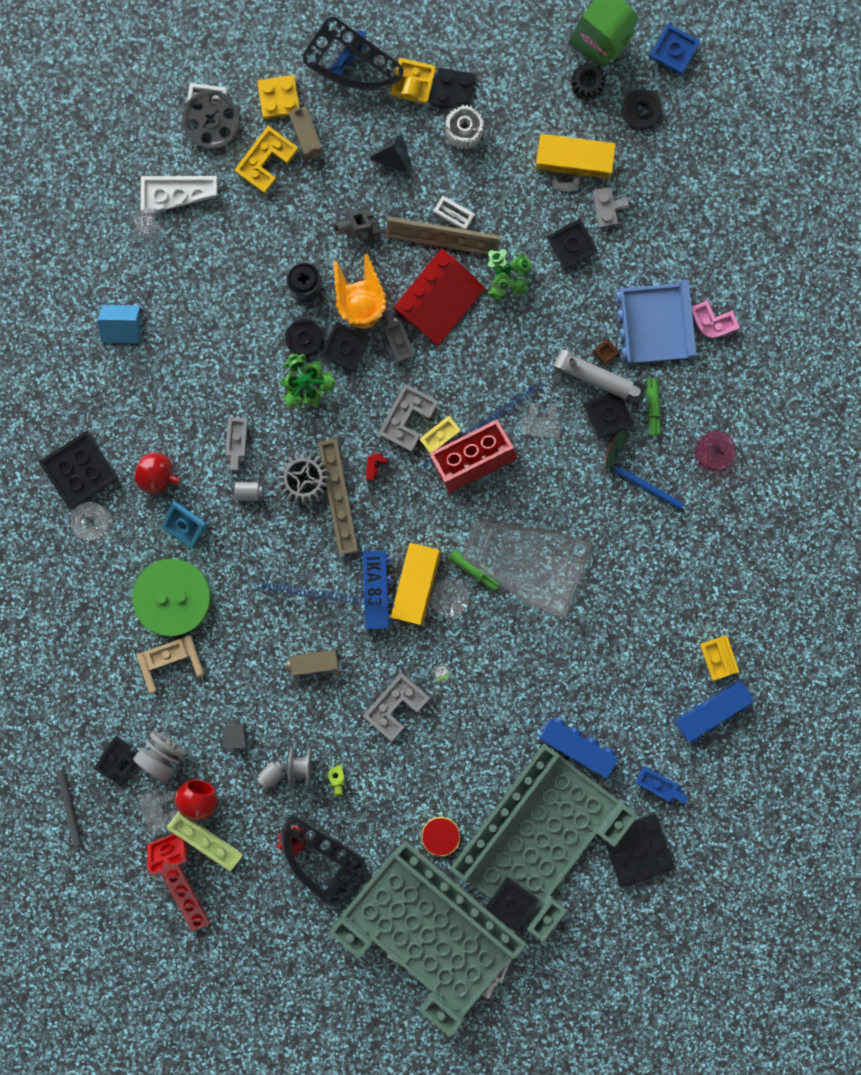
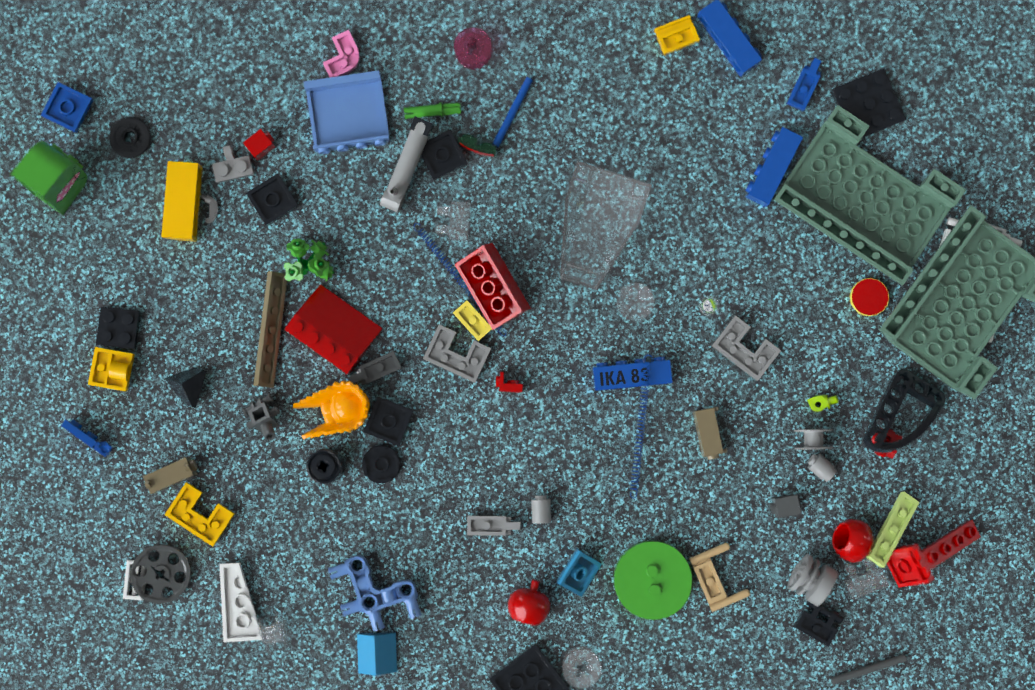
camera: 95 degrees left, 0 degrees up
(184, 315) = (365, 588): none -> medium blue pin
(278, 96) = (133, 506): yellow plate -> none
(304, 380) = (417, 452): bright green plant -> none
(306, 469) = (520, 471): light grey gear -> none
(338, 497) = (540, 419): dark tan plate -> none
(354, 47) = (79, 431): black beam -> none
(416, 584) = (623, 335): yellow brick -> none
(447, 218) = (232, 331): white tile -> none
(456, 558) = (595, 295): bright green axle -> none
(464, 137) = (167, 318): white brick -> none
(511, 903) = (931, 223): black plate -> none
(591, 70) = (100, 181): black tyre -> none
(606, 351) = (379, 160): reddish brown tile -> none
(628, 234) = (259, 144): none -> red brick

